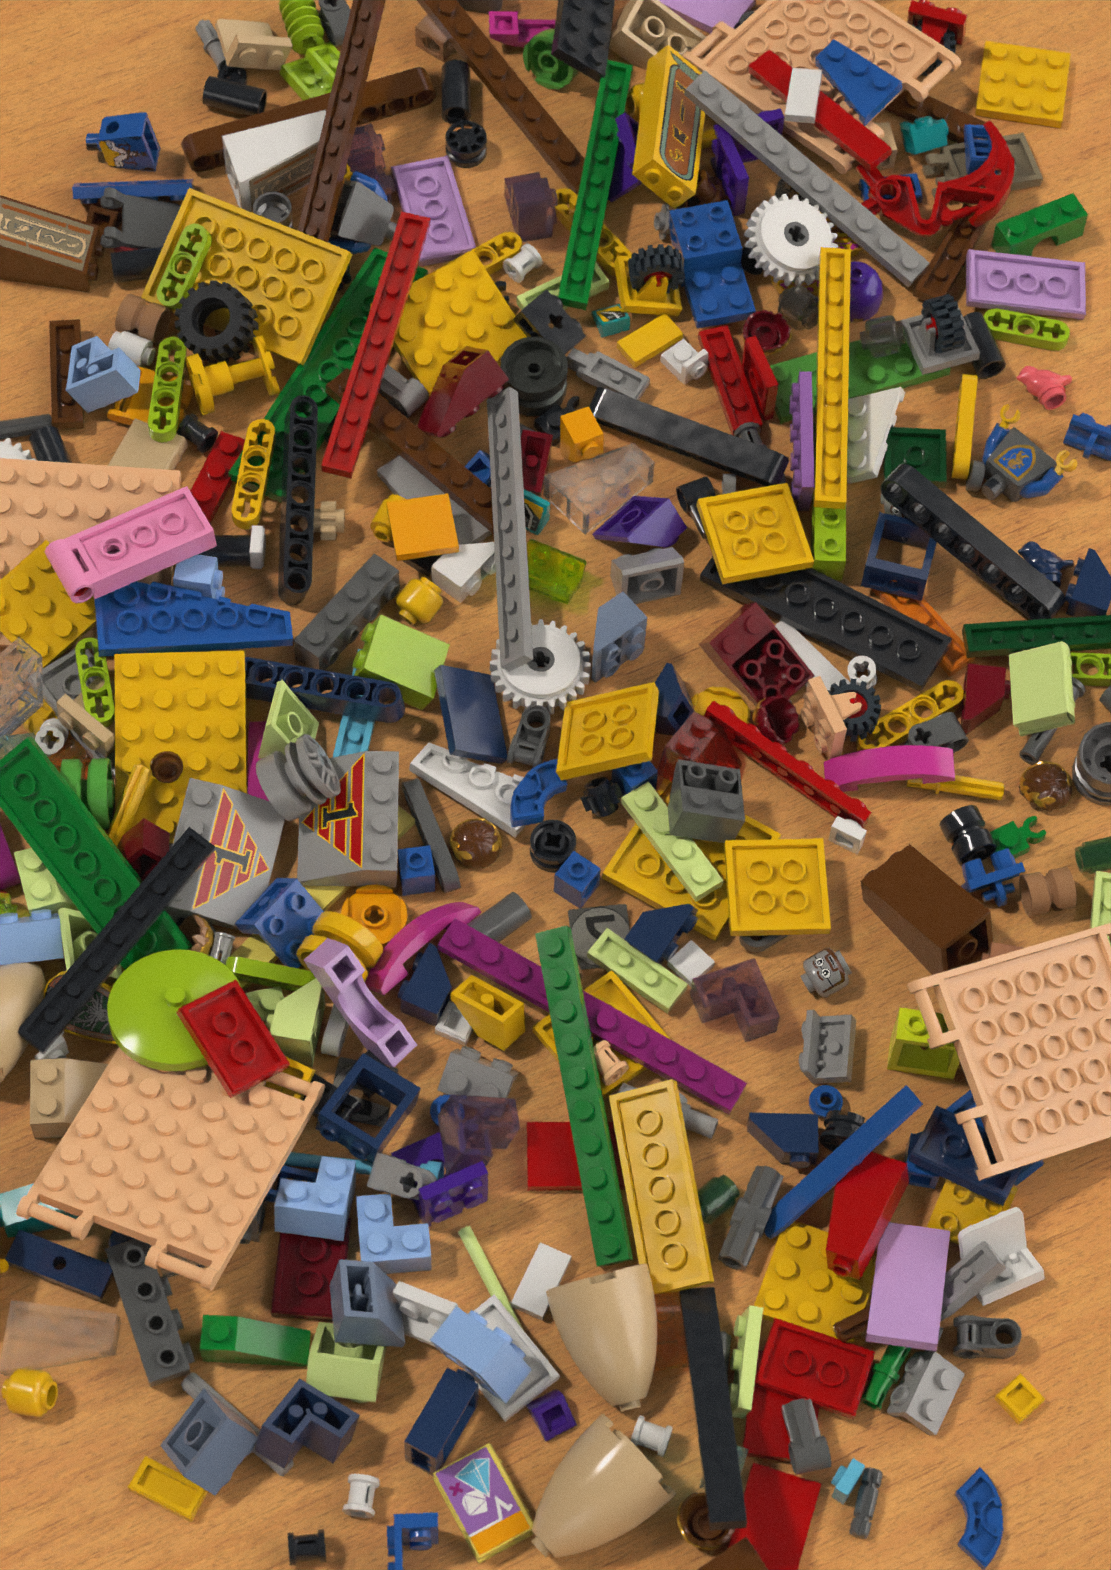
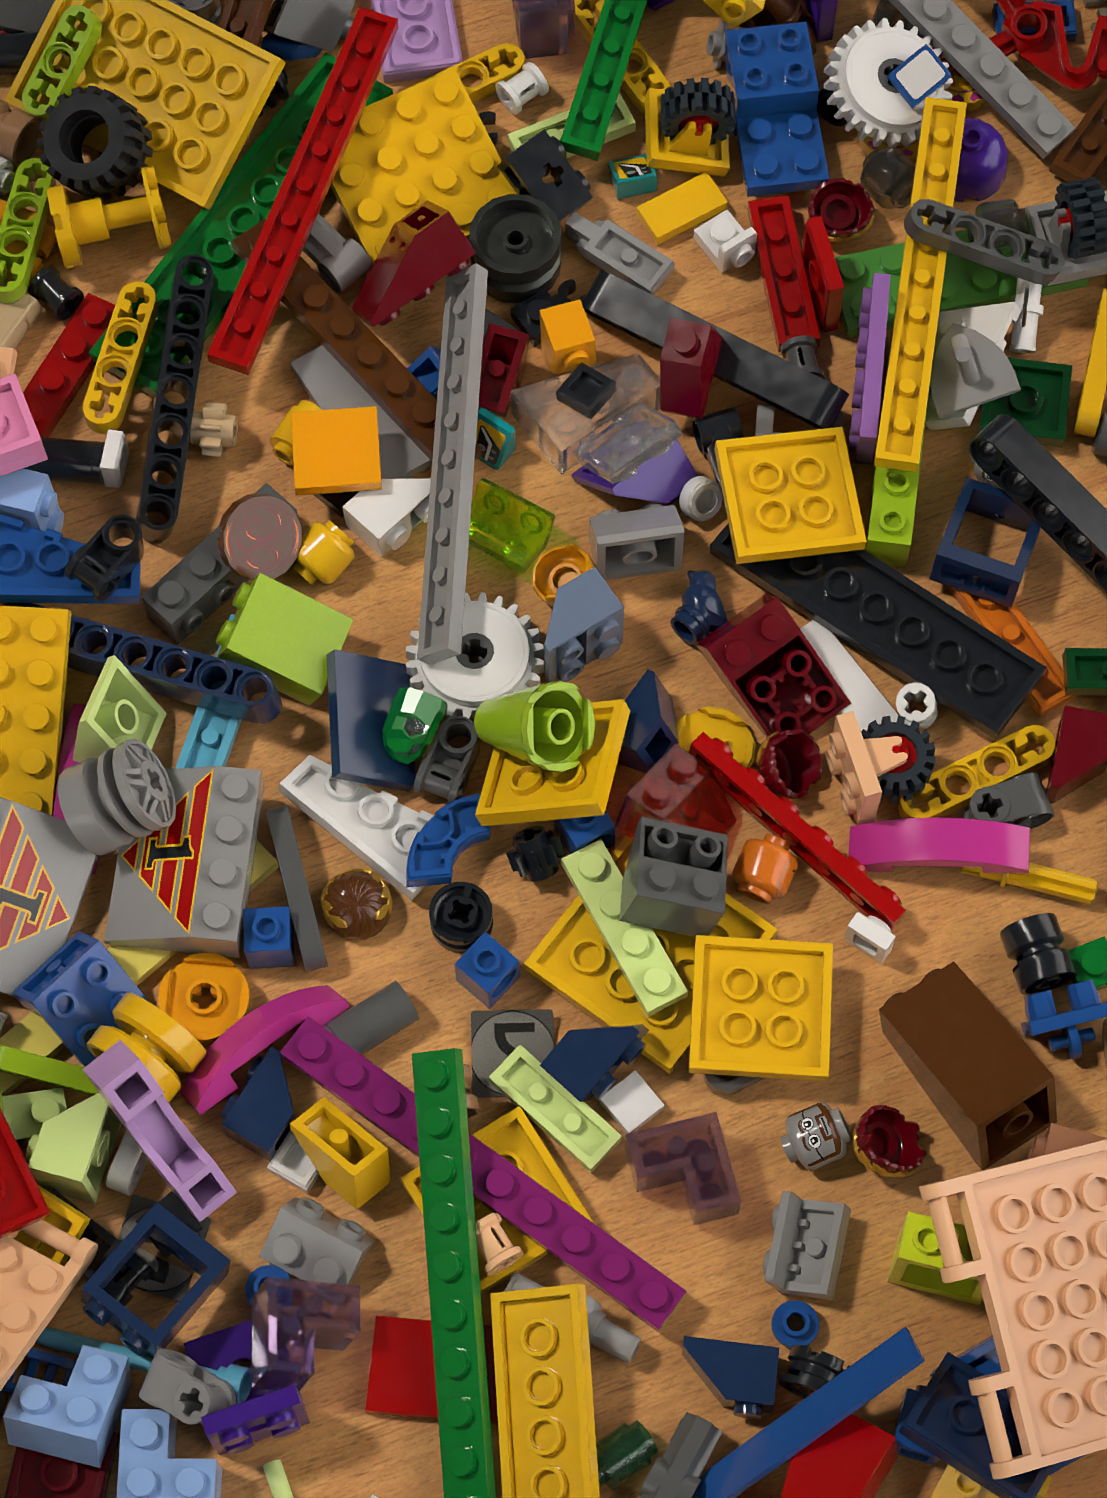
camera: 10 degrees right, 5 degrees up
(266, 616) = (103, 564): none -> black piece
(375, 589) = (259, 536): none -> reddish brown tile
(502, 712) = (412, 724): none -> green rock
(591, 598) = (557, 568): none -> light orange hair
(596, 702) = (539, 724): none -> lime cone
(600, 470) = (586, 390): none -> black tile
(635, 505) = (628, 443): none -> clear plate
(671, 449) = (688, 367): none -> dark red slope
(689, 542) = (701, 498): none -> white tile
(698, 619) = (700, 609): none -> dark blue animal
(767, 794) = (765, 868): none -> orange head
(814, 232) = (919, 76): none -> white slope
(873, 438) = (969, 371): none -> light grey shield
(874, 349) = (983, 249): none -> dark grey beam
(876, 972) = (887, 1142): none -> dark red hair
(909, 374) = (1024, 338): none -> white pin

